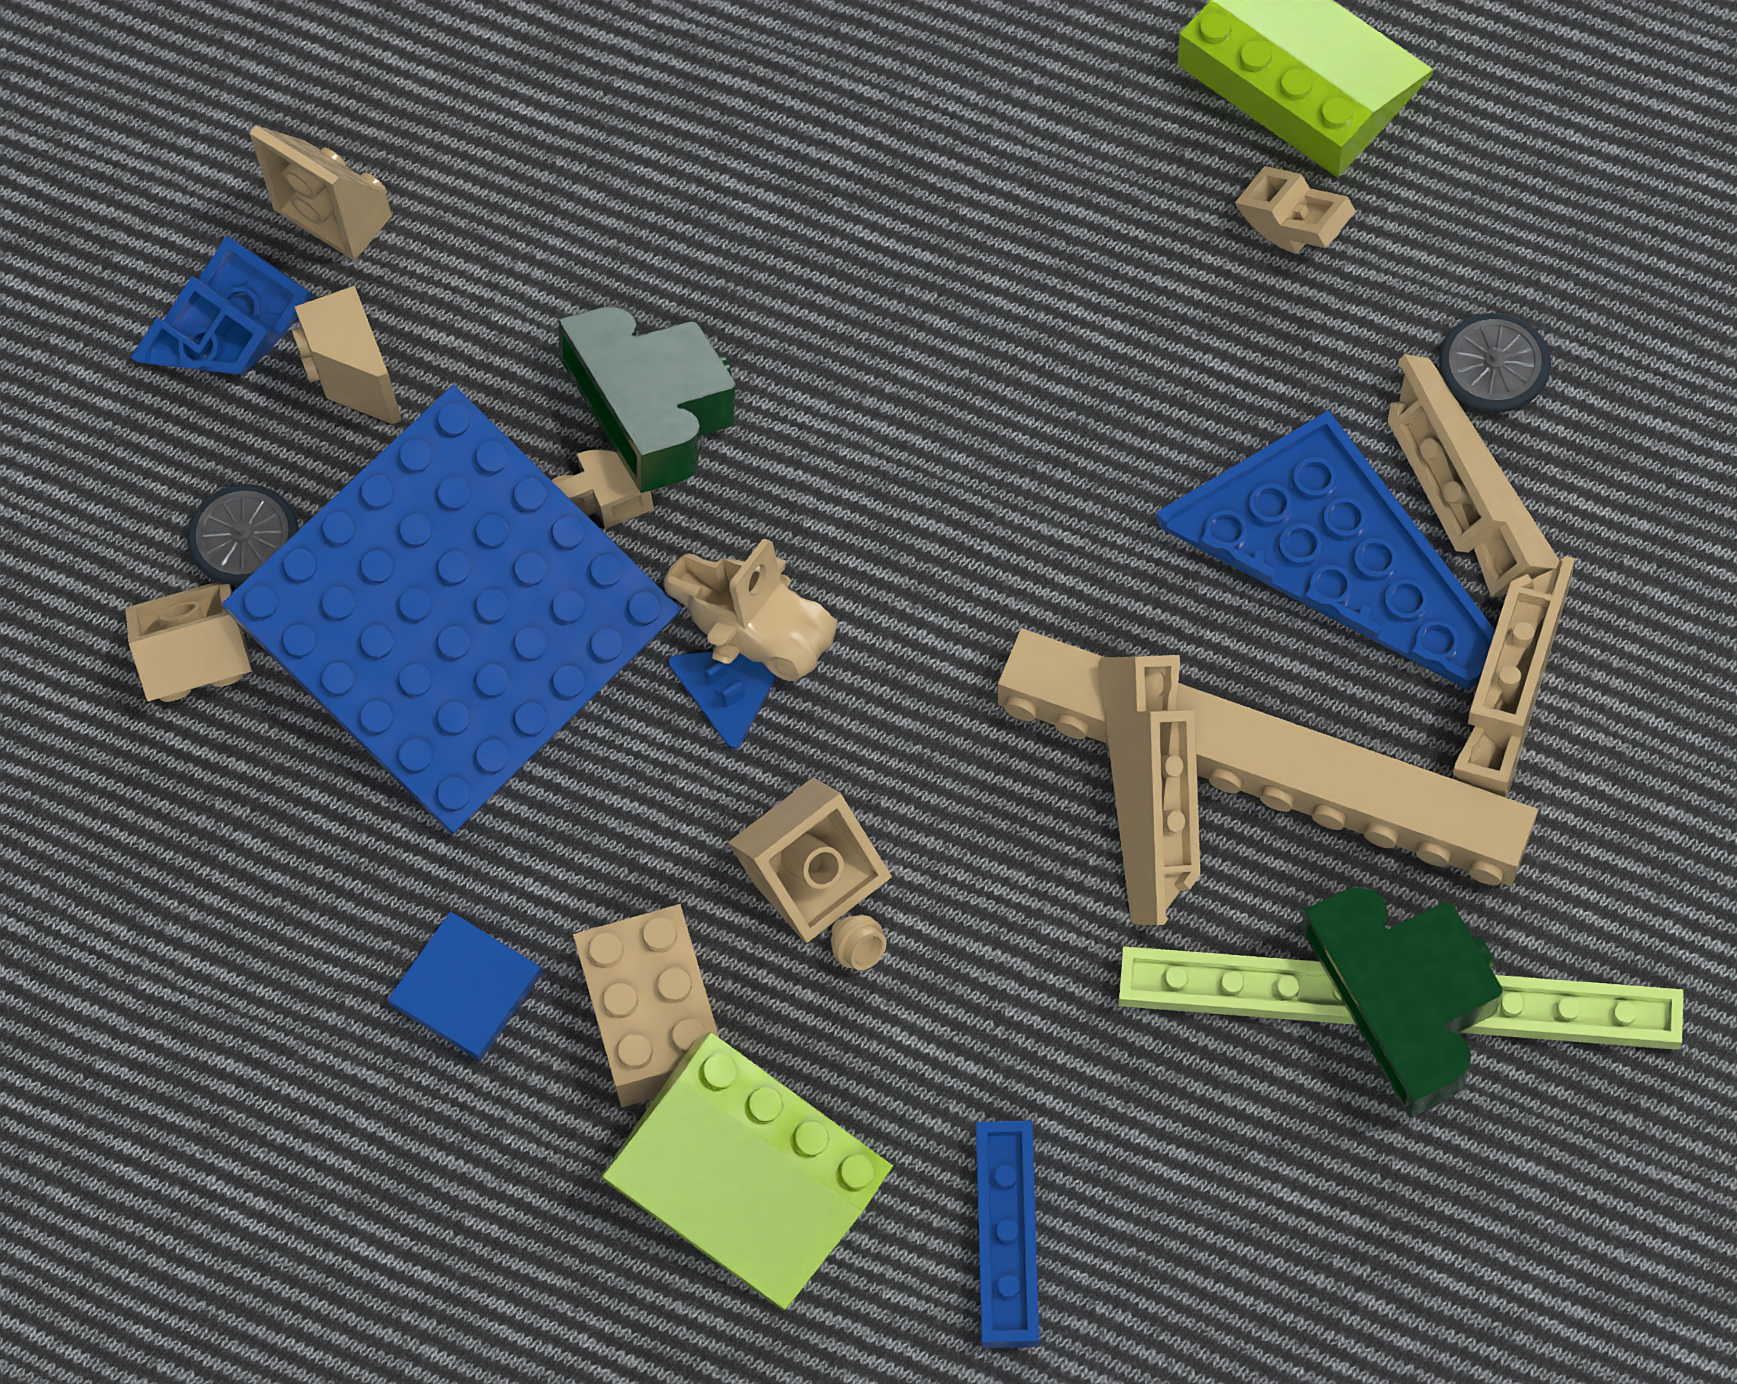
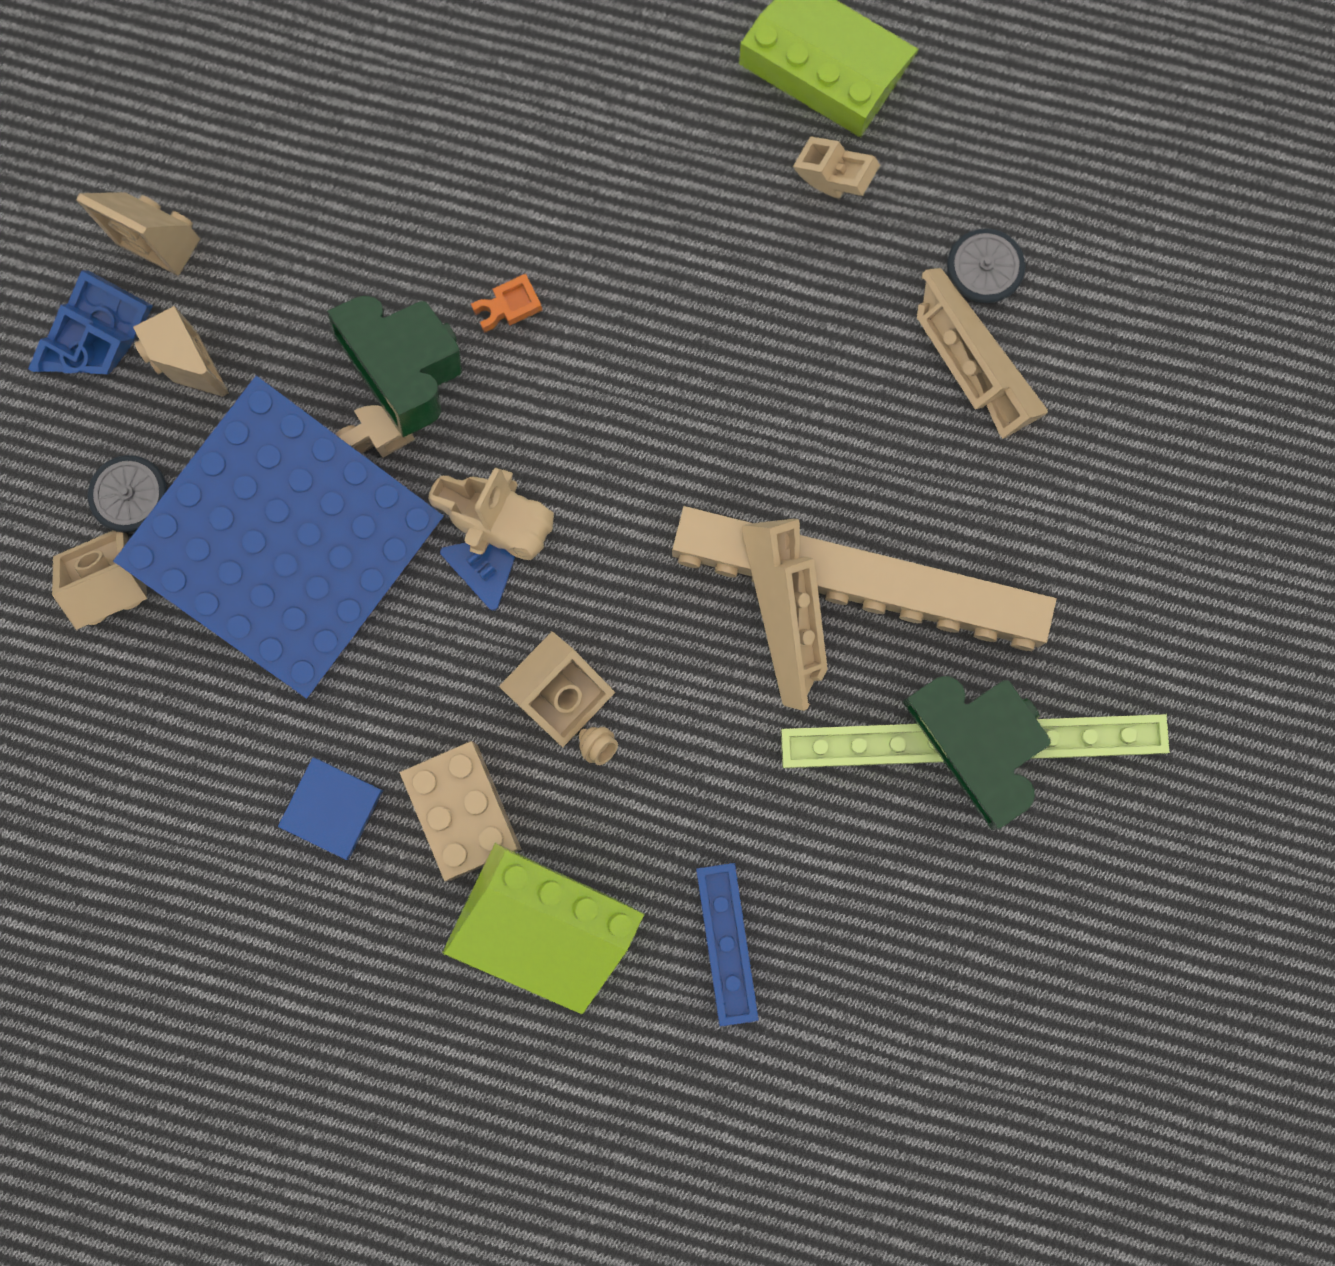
camera: 10 degrees left, 15 degrees up
(816, 338) = (513, 301): none -> orange plate
(1334, 537) = (891, 410): blue wing -> none
(1512, 679) = (1027, 502): tan wedge -> none

